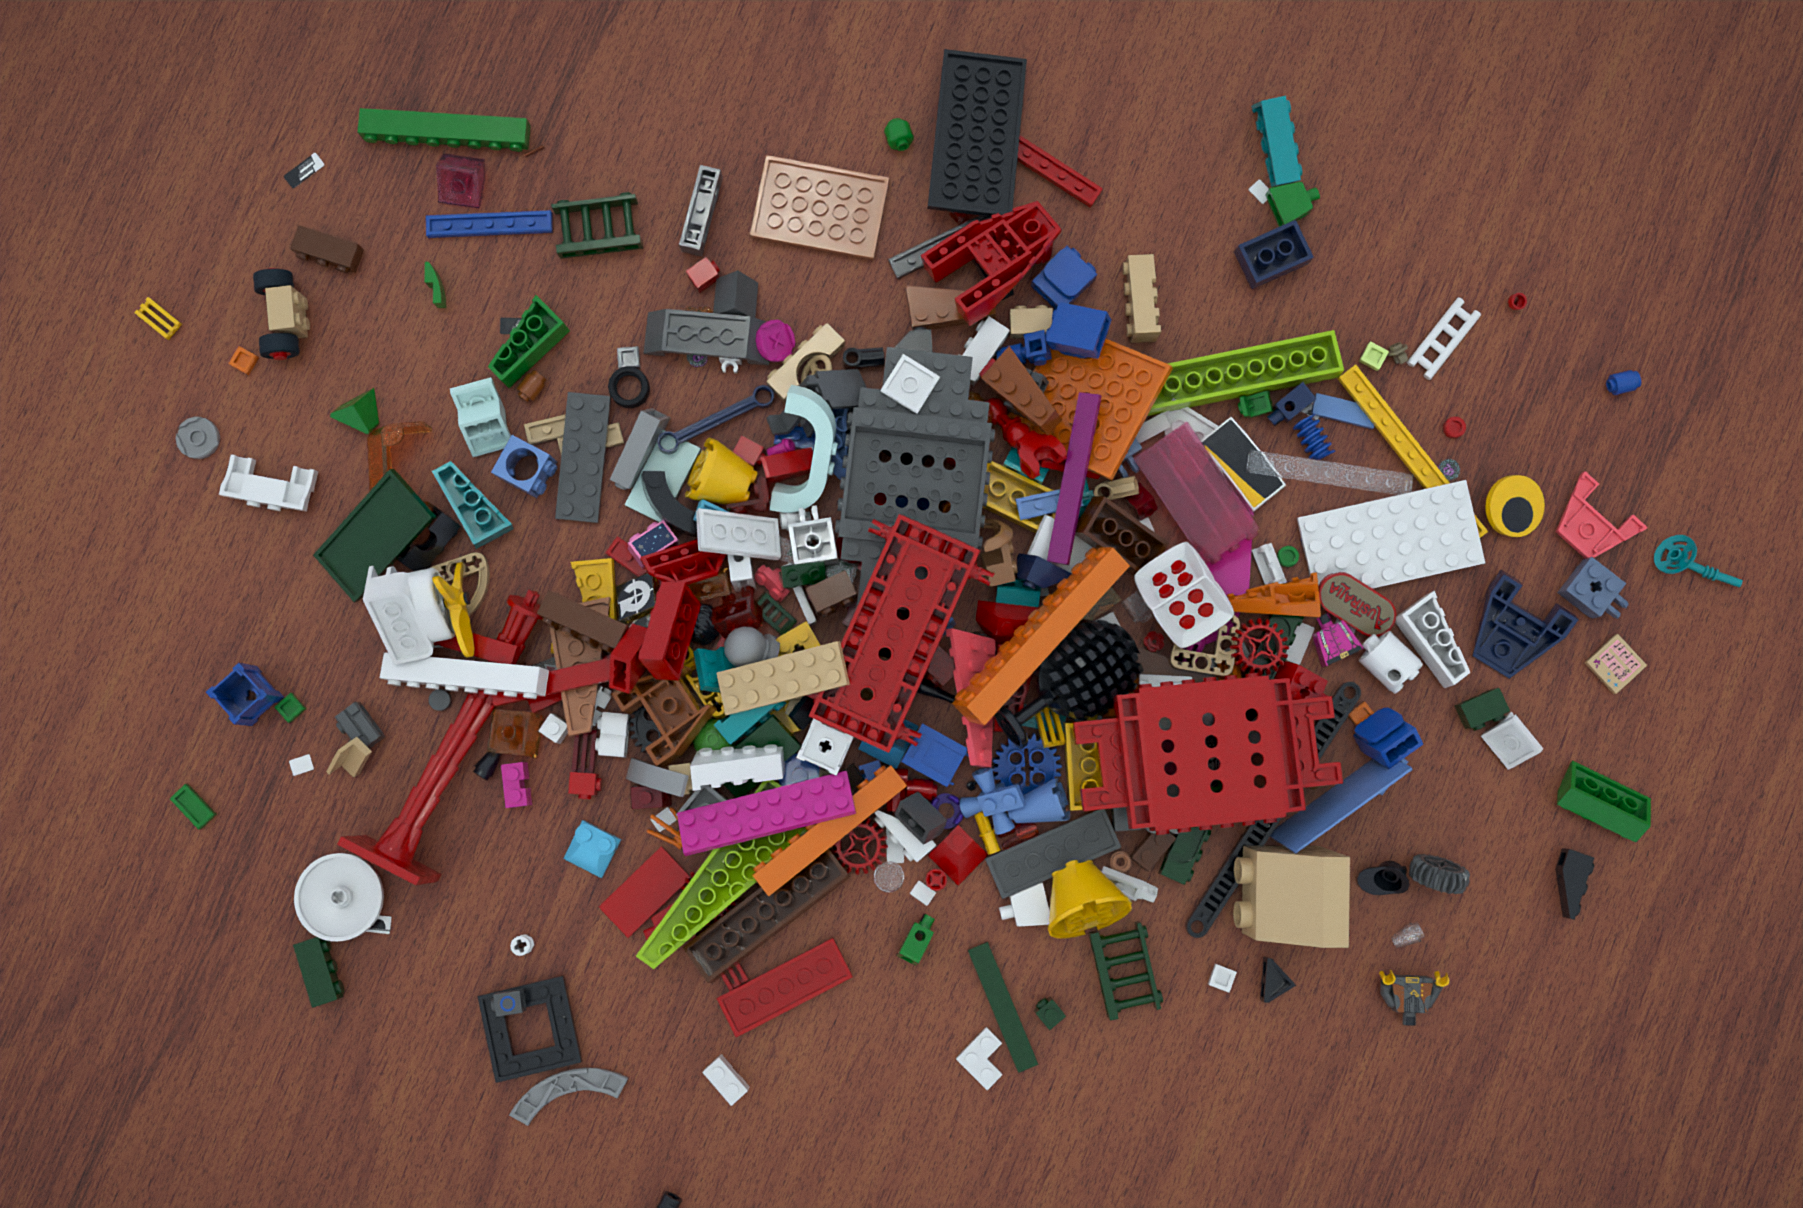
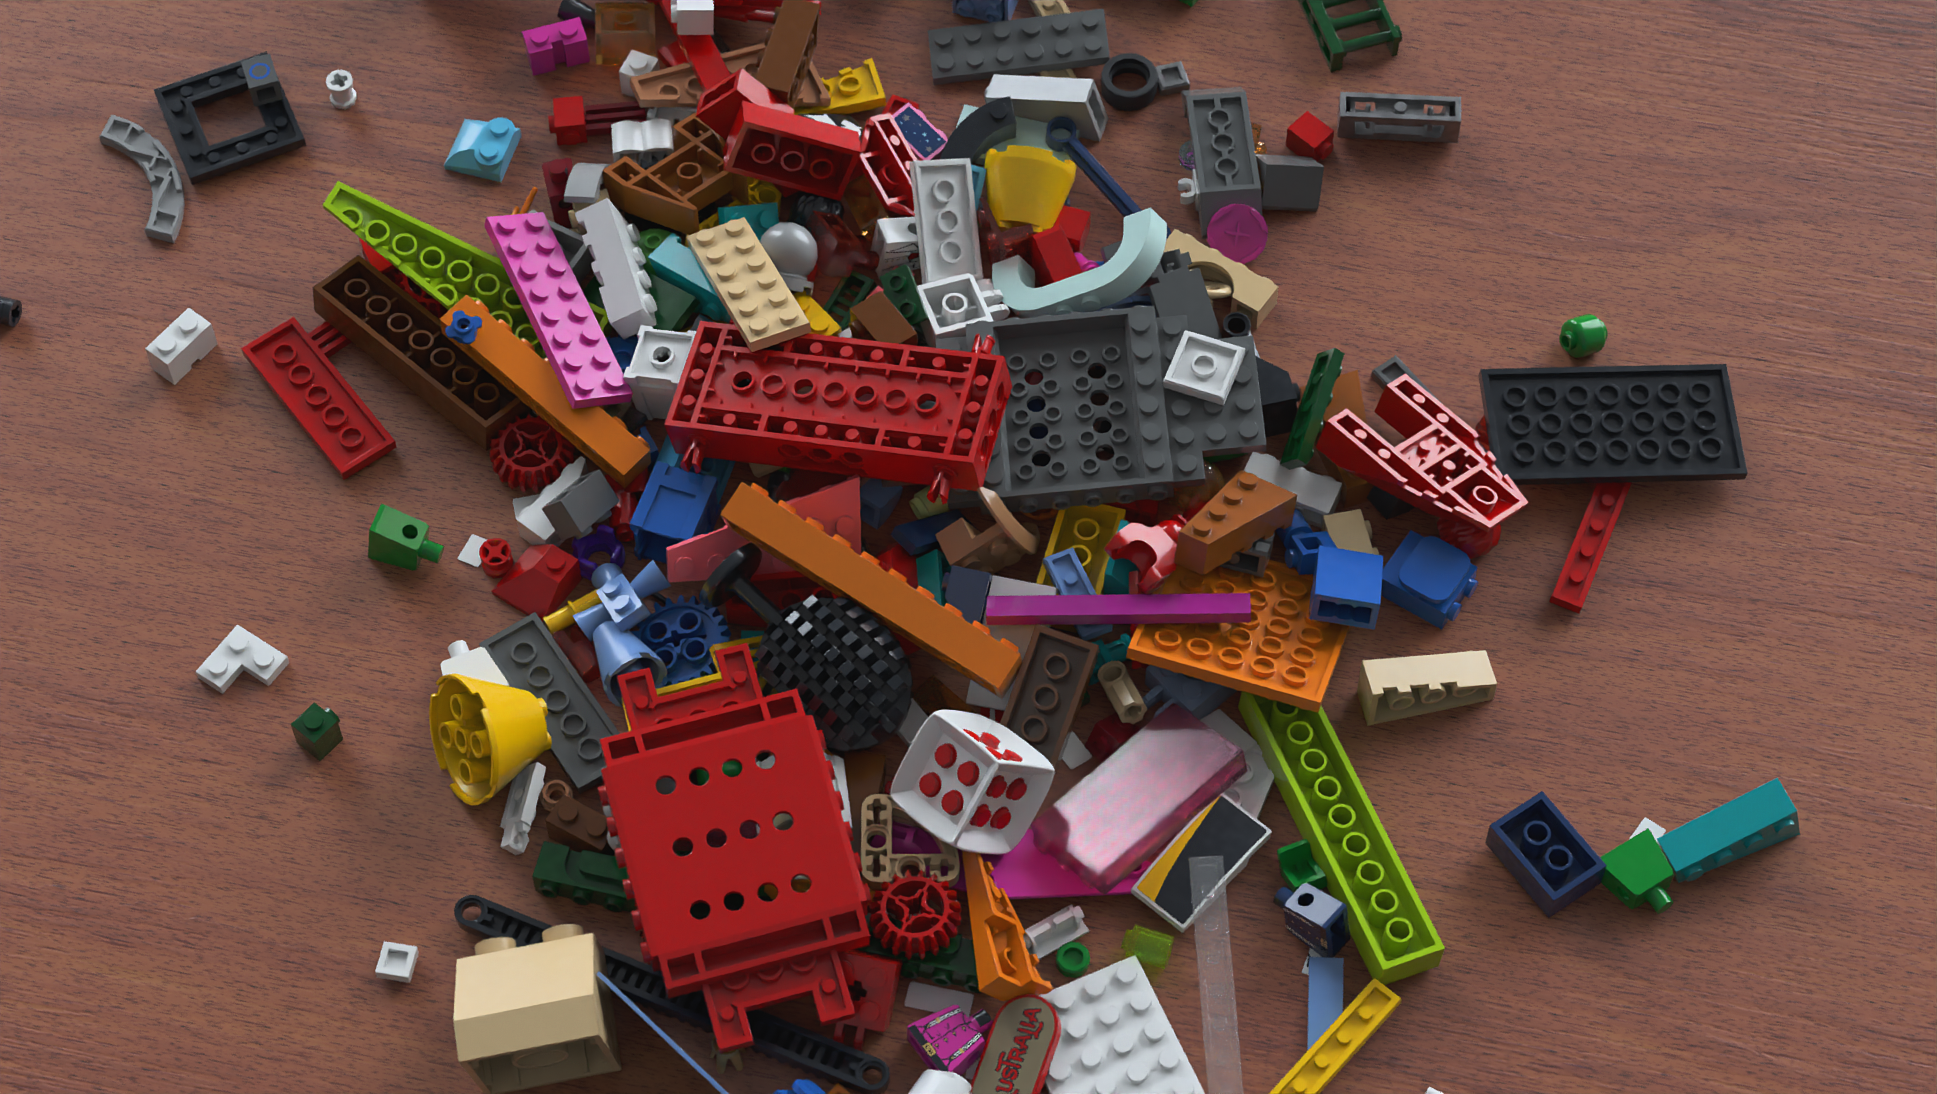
camera: 80 degrees right, 25 degrees down
(644, 892) = (434, 206): red tile -> none
(775, 881) = (466, 335): none -> blue plate
(819, 207) = (1447, 261): plate -> none
(889, 876) = (492, 501): clear piece -> none
(939, 321) = (1312, 408): none -> dark green plate
(982, 596) = (920, 534): none -> dark blue tile
(1003, 1007) = (319, 675): dark green tile -> none
(1108, 984) = (388, 793): dark green fence -> none
(1273, 981) = (402, 1032): black slope -> none
(1291, 508) = (1148, 946): none -> clear neon green brick
(1313, 438) = (1267, 956): blue piece -> none
(1373, 356) = (1424, 1032): yellowish green plate -> none
(1397, 351) = (1439, 1067): dark tan plate -> none

